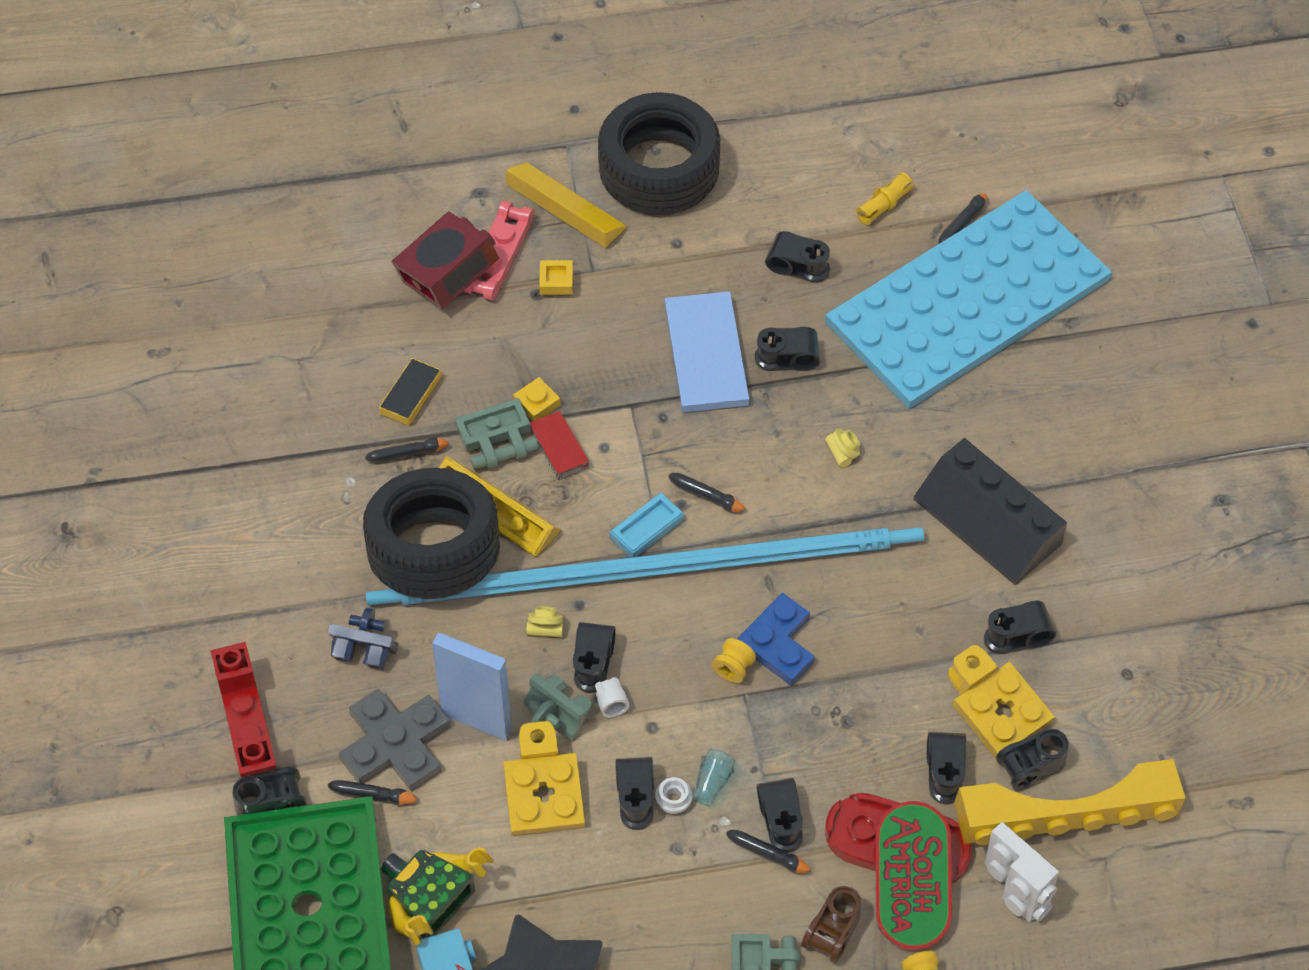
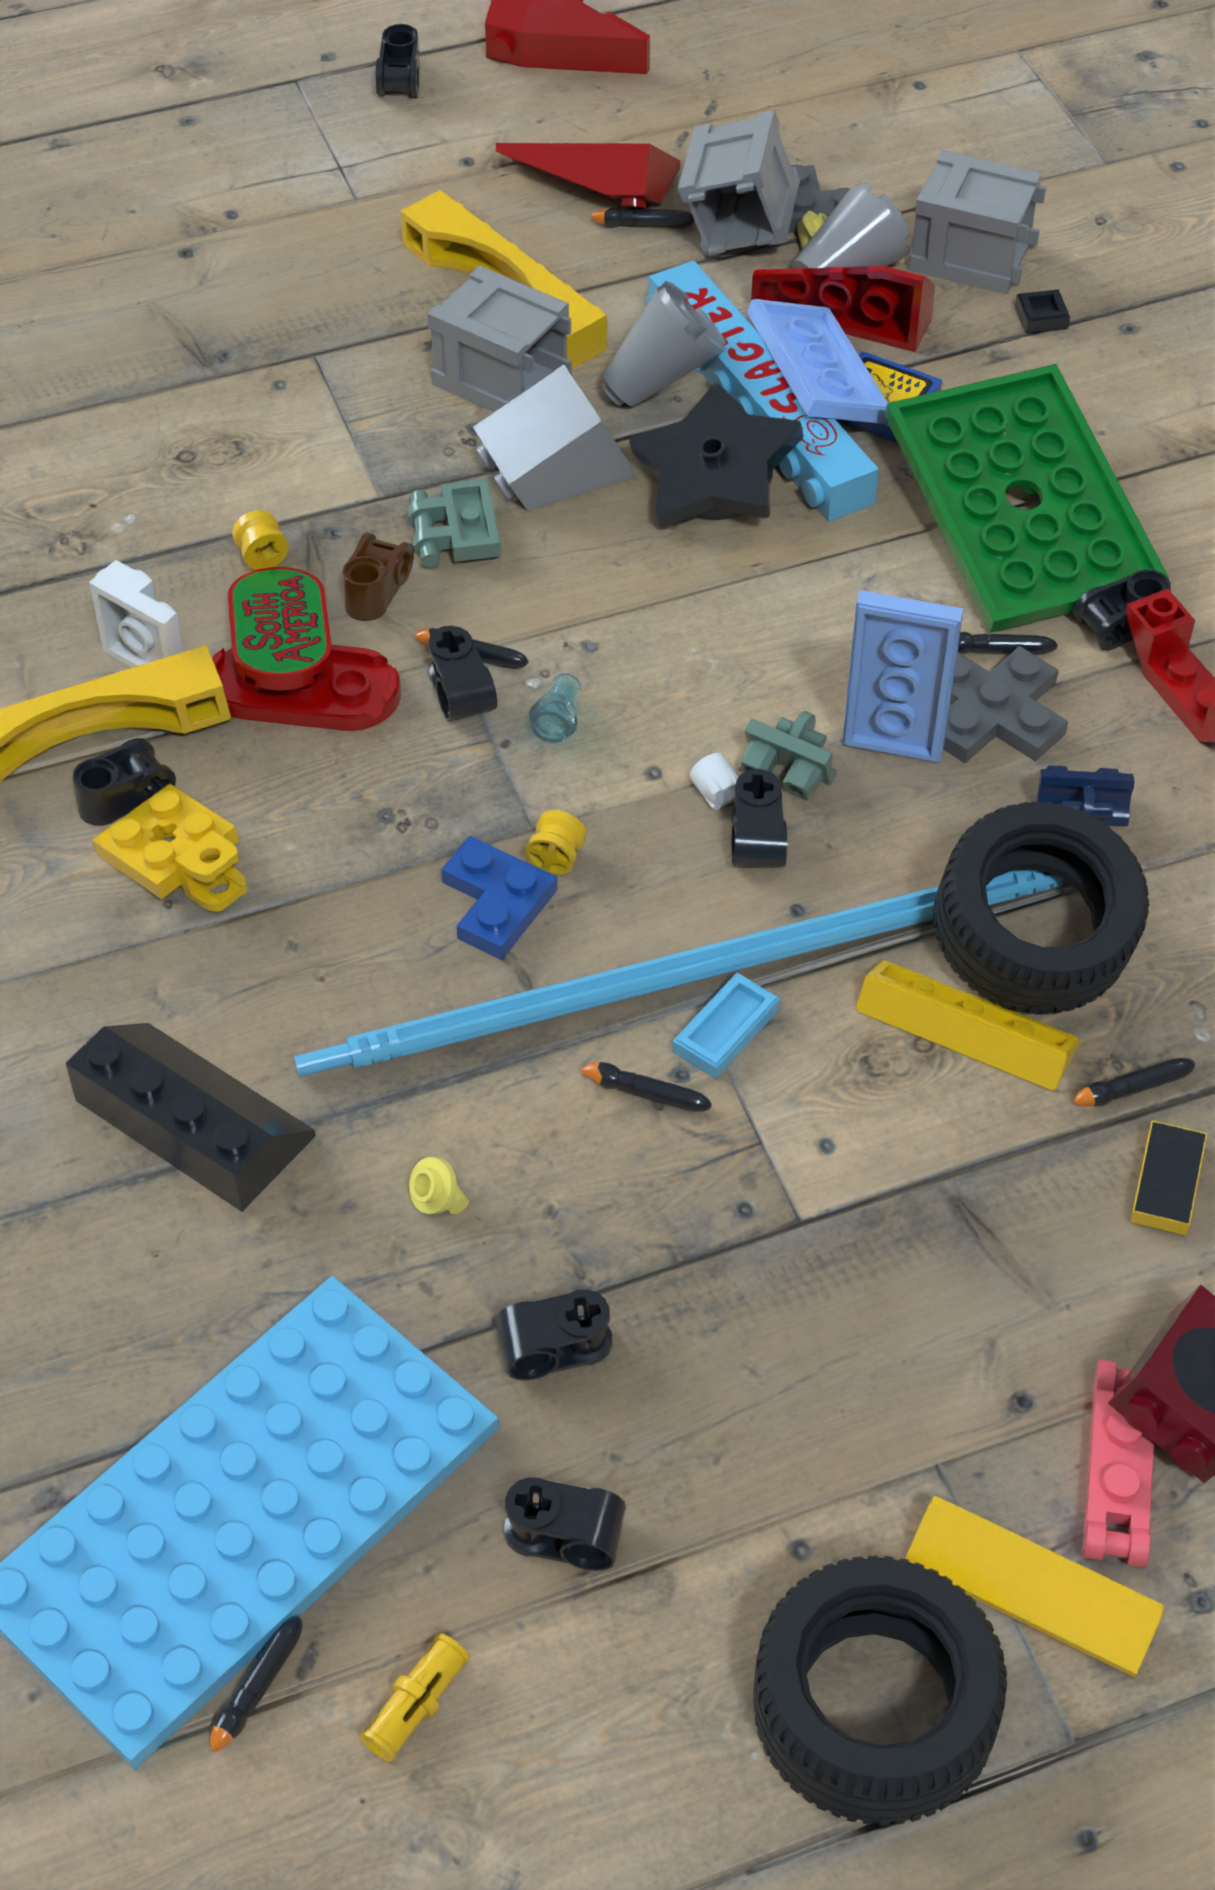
camera: 170 degrees right, 5 degrees down
(430, 889) = (884, 533): torso -> none
(492, 426) = (1011, 1131): sand green plate -> none
(537, 399) = (958, 1195): yellow plate -> none
(542, 767) = (787, 687): yellow plate -> none
(545, 622) = (838, 864): light yellow plate -> none
(556, 277) = (997, 1415): yellow plate -> none
(559, 445) = (899, 1125): red tile -> none
(635, 788) = (657, 674): black piece -> none
(673, 786) = (605, 685): white plate -> none
(706, 352) = (698, 1328): light blue tile -> none
(946, 764) = (242, 756): black piece -> none
(1022, 627) = (139, 946): black piece -> none

